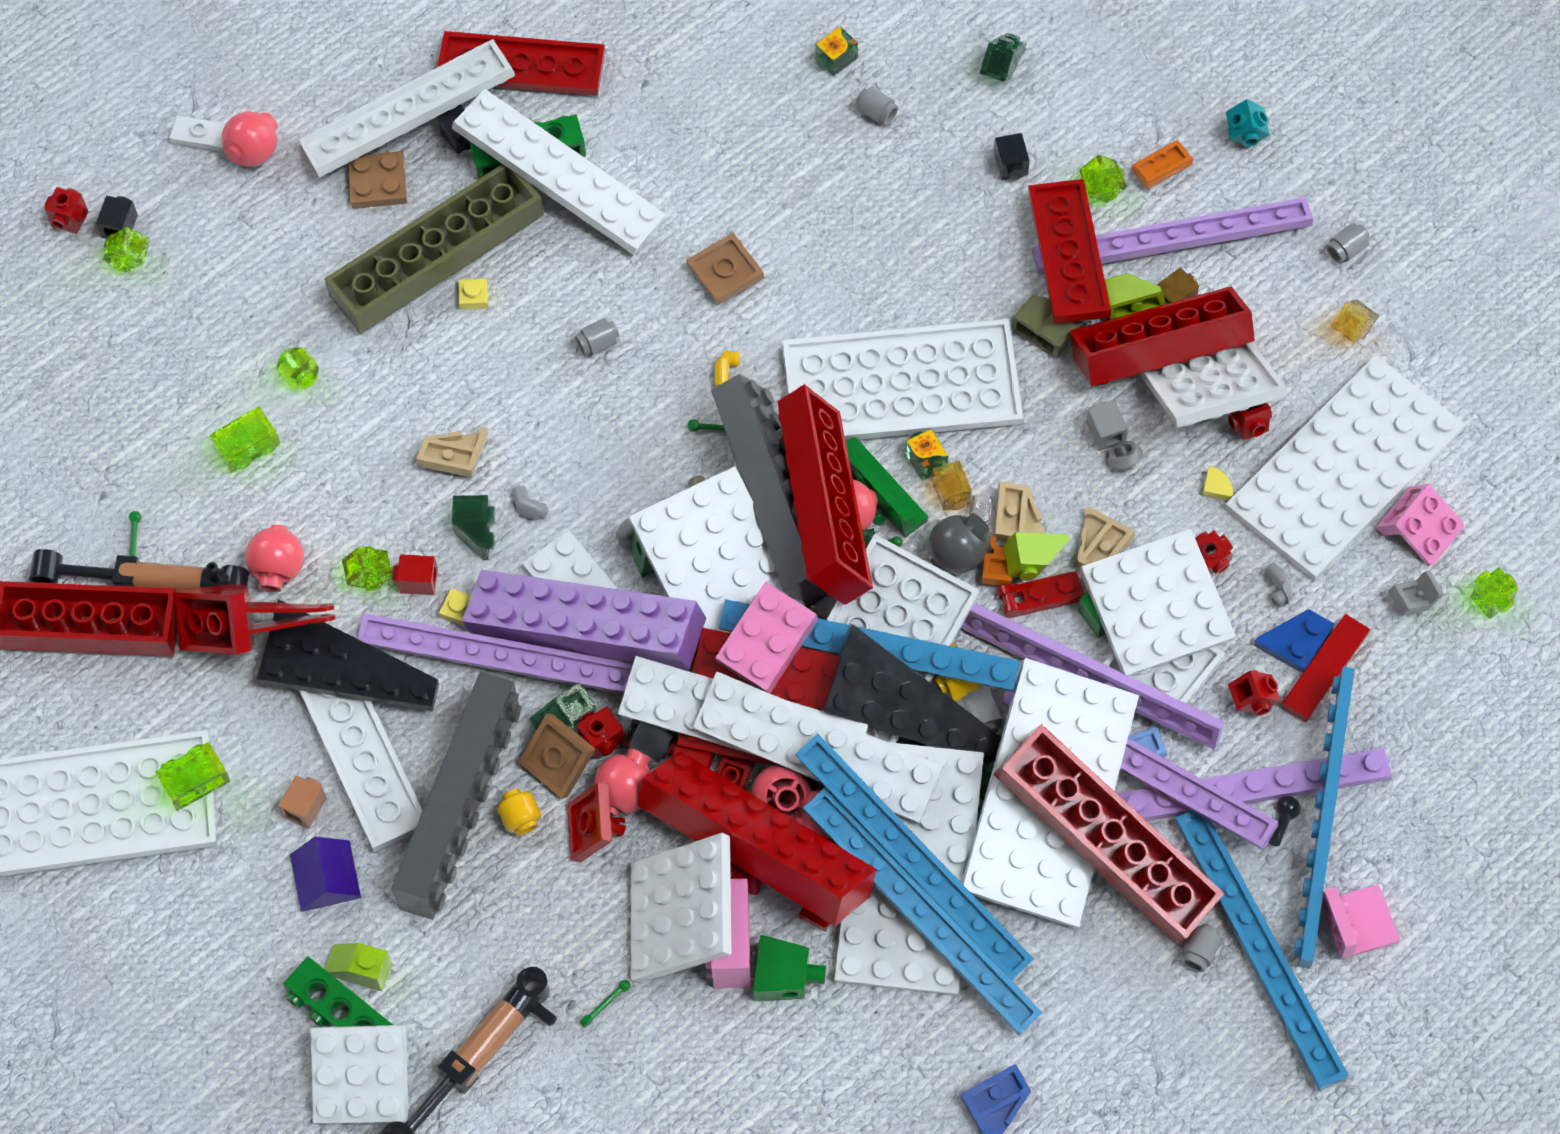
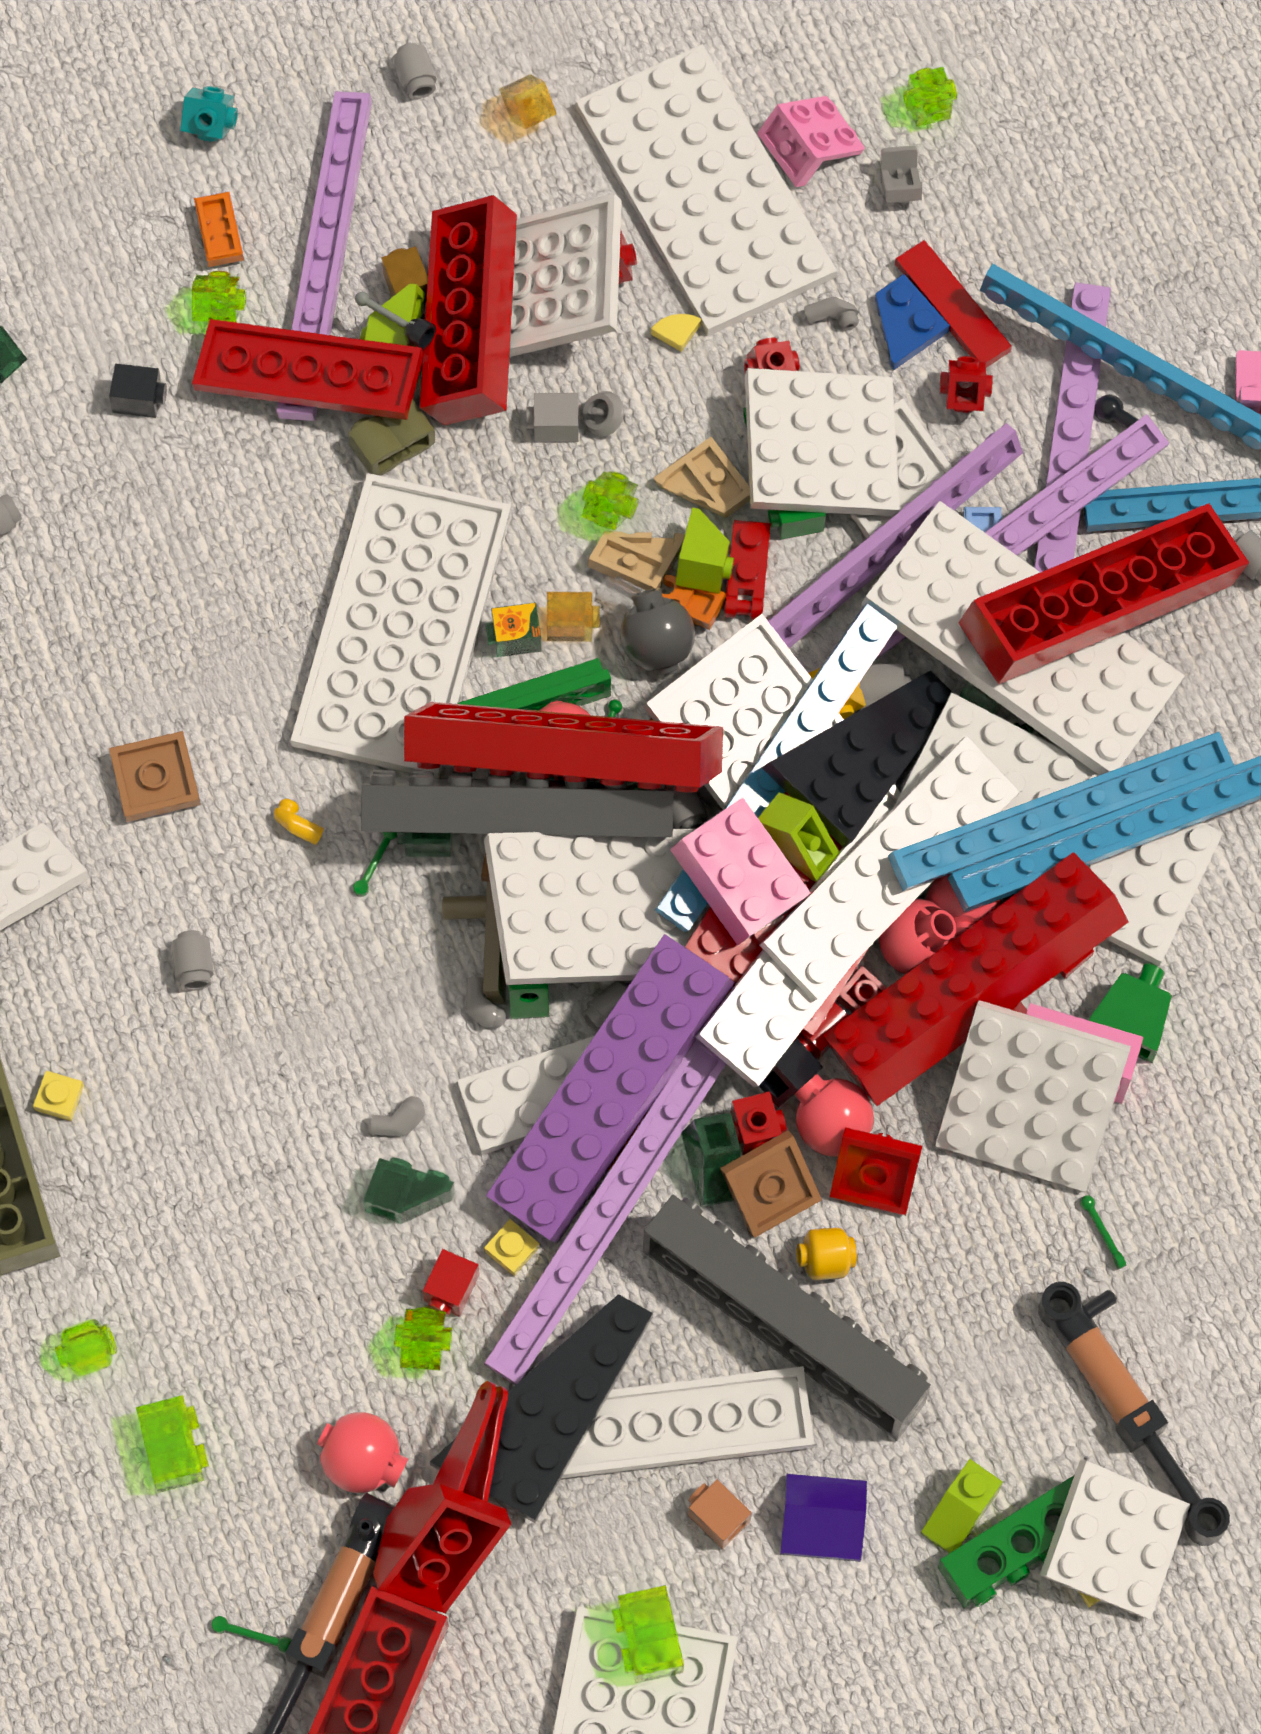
camera: 75 degrees left, 5 degrees up
(452, 452) = (288, 1187): tan wing -> none
(813, 672) = (799, 835): none -> lime slope
(1052, 479) = (610, 500): none -> clear neon green brick
(1124, 304) = (417, 331): none -> hinge

